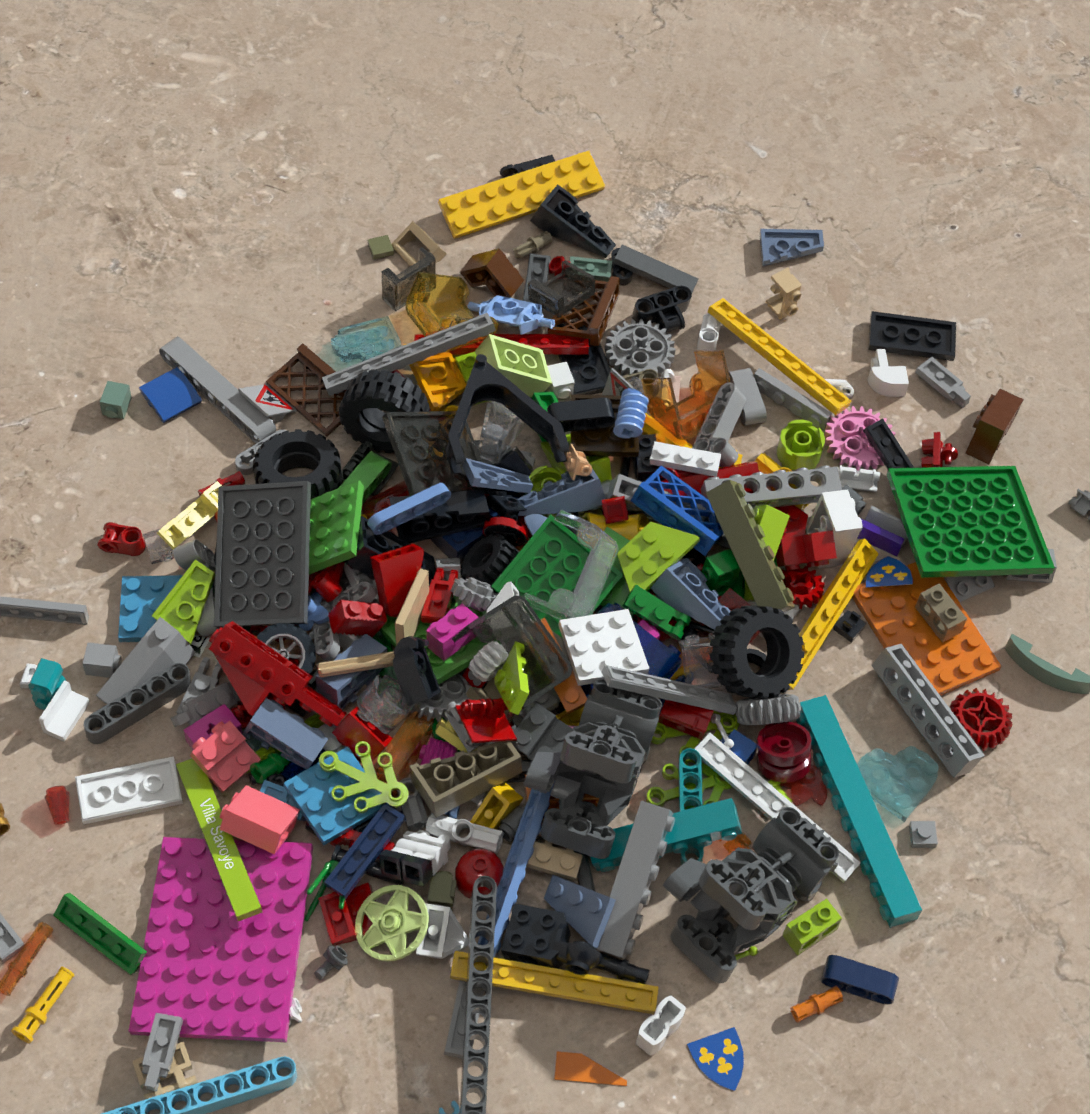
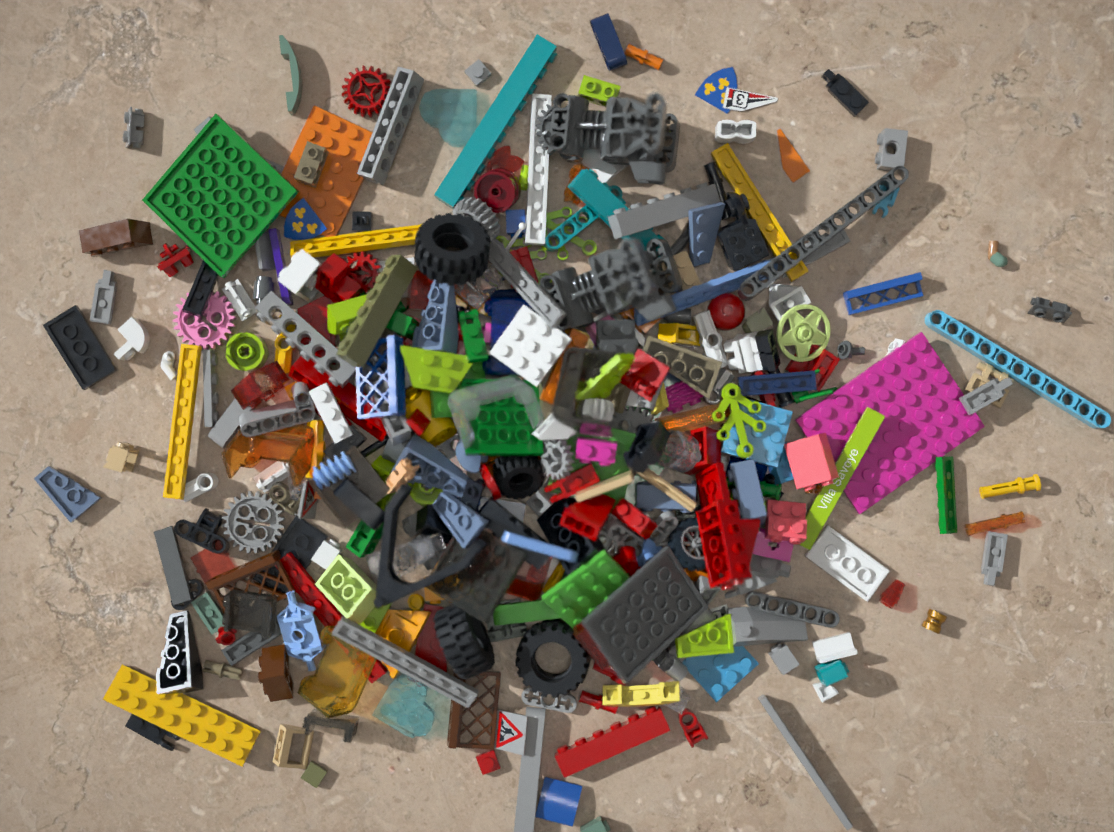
camera: 125 degrees left, 30 degrees up
(177, 469) = (611, 741): none -> red brick
(259, 370) = (488, 762): none -> red plate
(364, 1047) = (886, 285): none -> blue fence
(627, 300) = (211, 564): none -> clear red piece
(688, 1071) = (744, 100): none -> sticker
(760, 427) = (260, 385): none -> clear red brick

